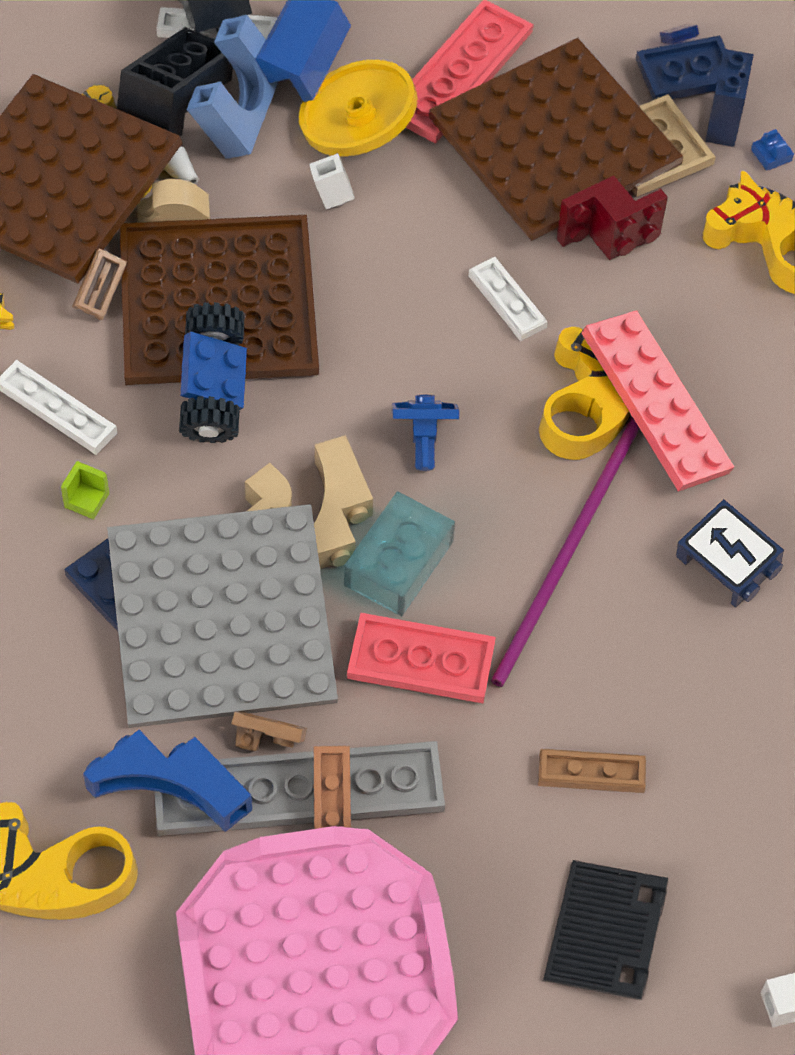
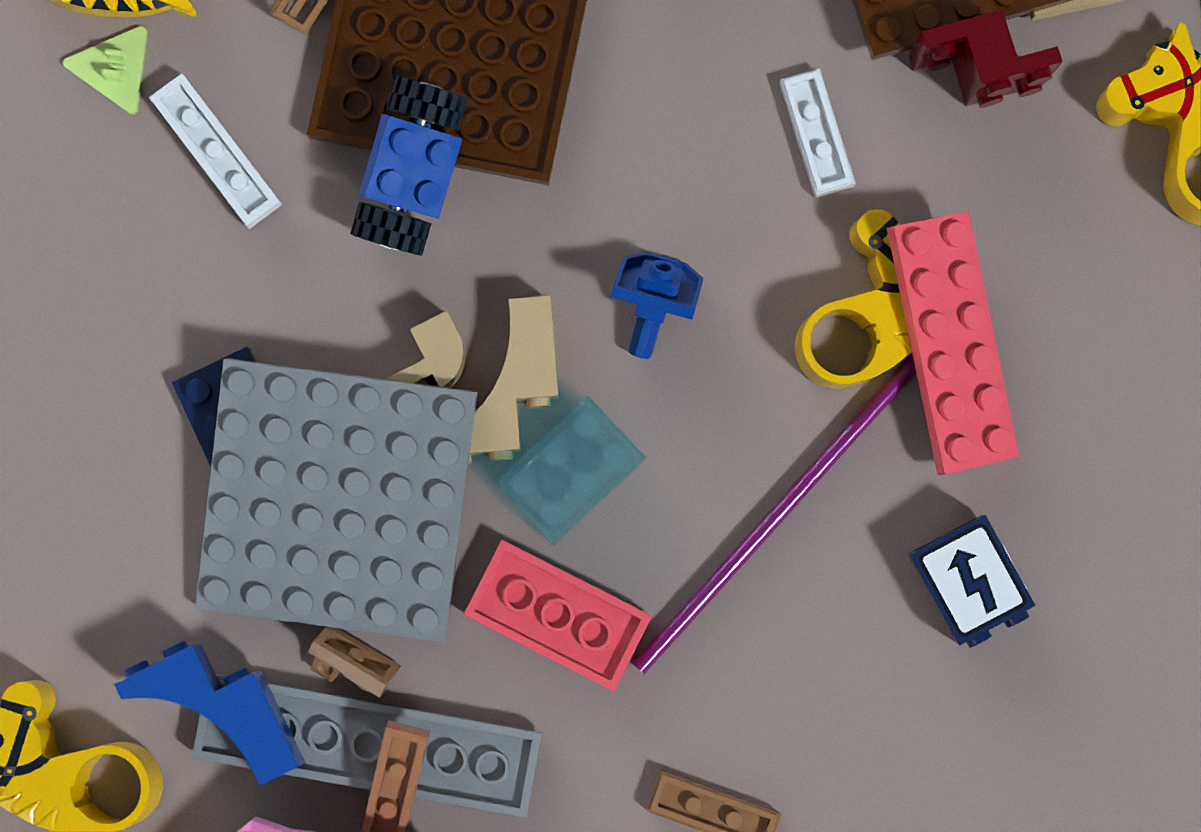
camera: 20 degrees right, 25 degrees up
(85, 490) = (219, 282): lime panel -> none

